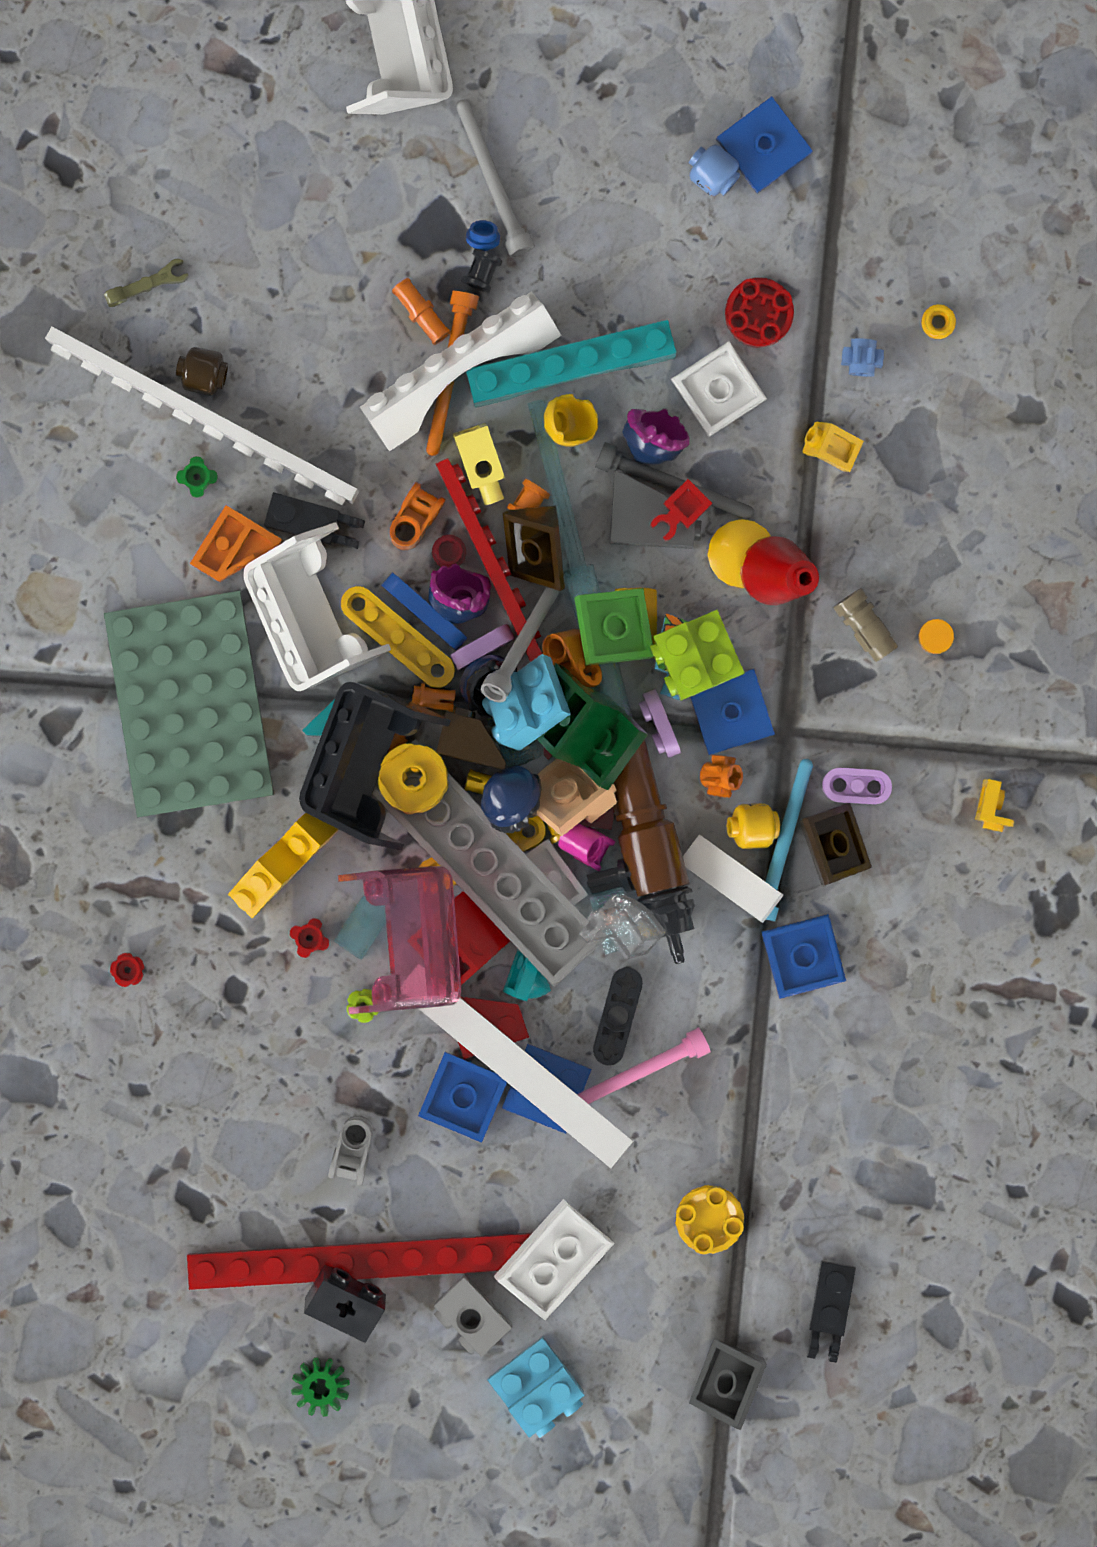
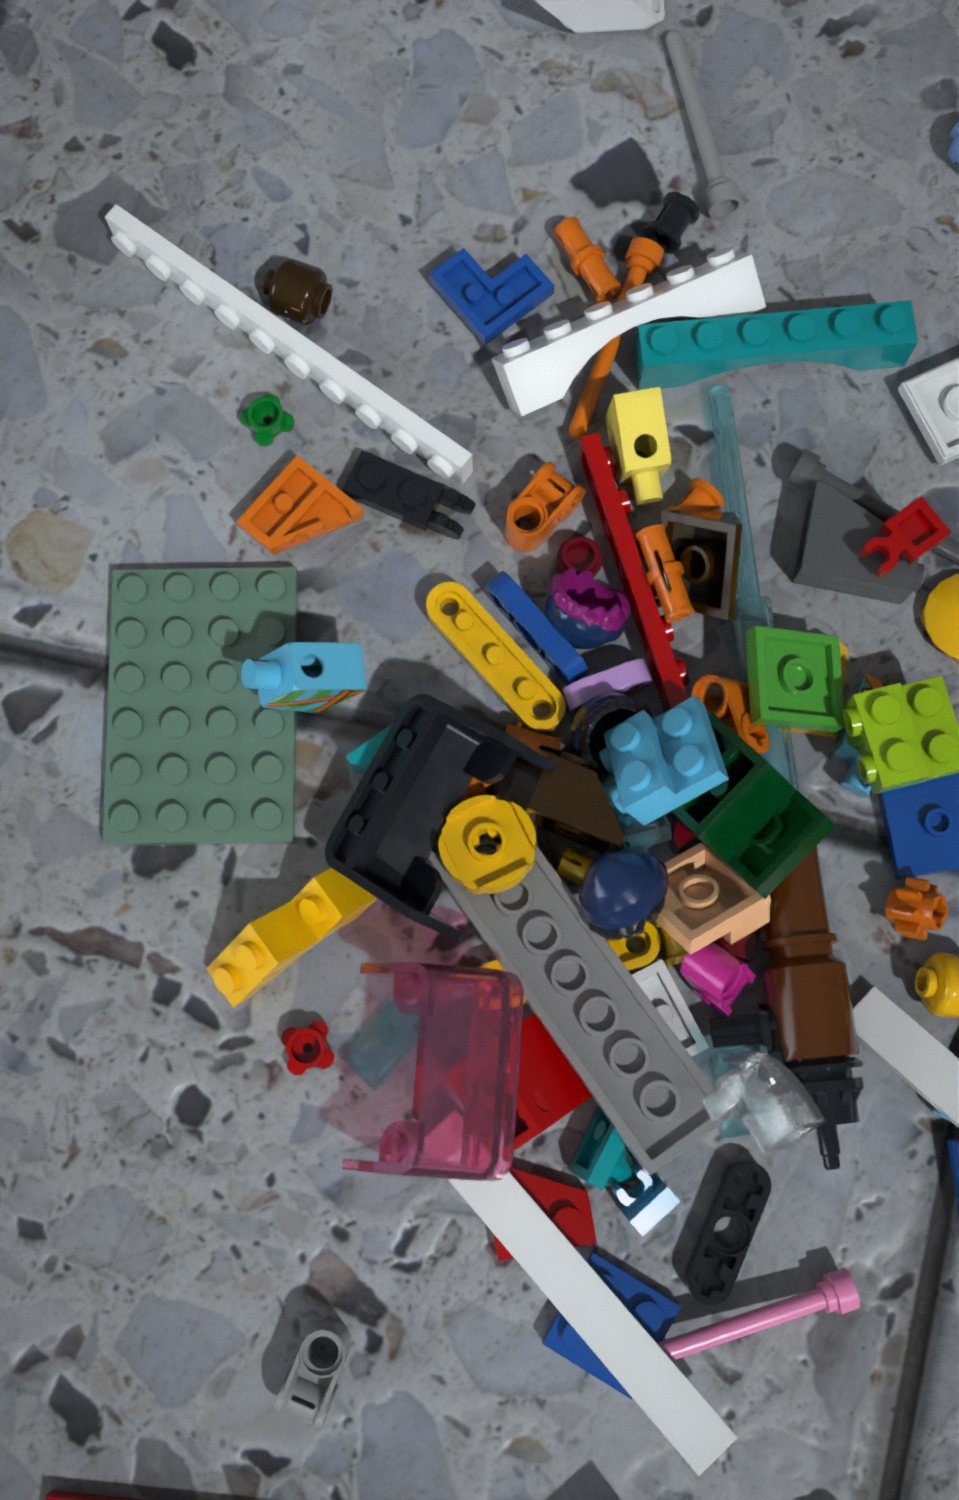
camera: 10 degrees right, 10 degrees down
(120, 294) = (210, 192): olive piece -> none
(127, 960) = (34, 1053): red plate -> none
(255, 682) = (291, 677): none -> medium azure torso
(299, 614) = (365, 598): white windscreen -> none
(354, 358) = (488, 303): none -> blue plate
(358, 997) = (357, 1147): lime plate -> none
(463, 1097) = (488, 1318): blue plate -> none
(483, 235) = (679, 180): blue plate -> none
(498, 684) = (631, 722): light grey piece -> none
(511, 560) = (655, 545): none -> orange pin
(558, 1005) = (647, 1202): none -> tile
(570, 420) = (763, 415): yellow hair -> none
(654, 436) = (871, 451): magenta hair -> none
(664, 738) = (842, 844): lavender plate -> none

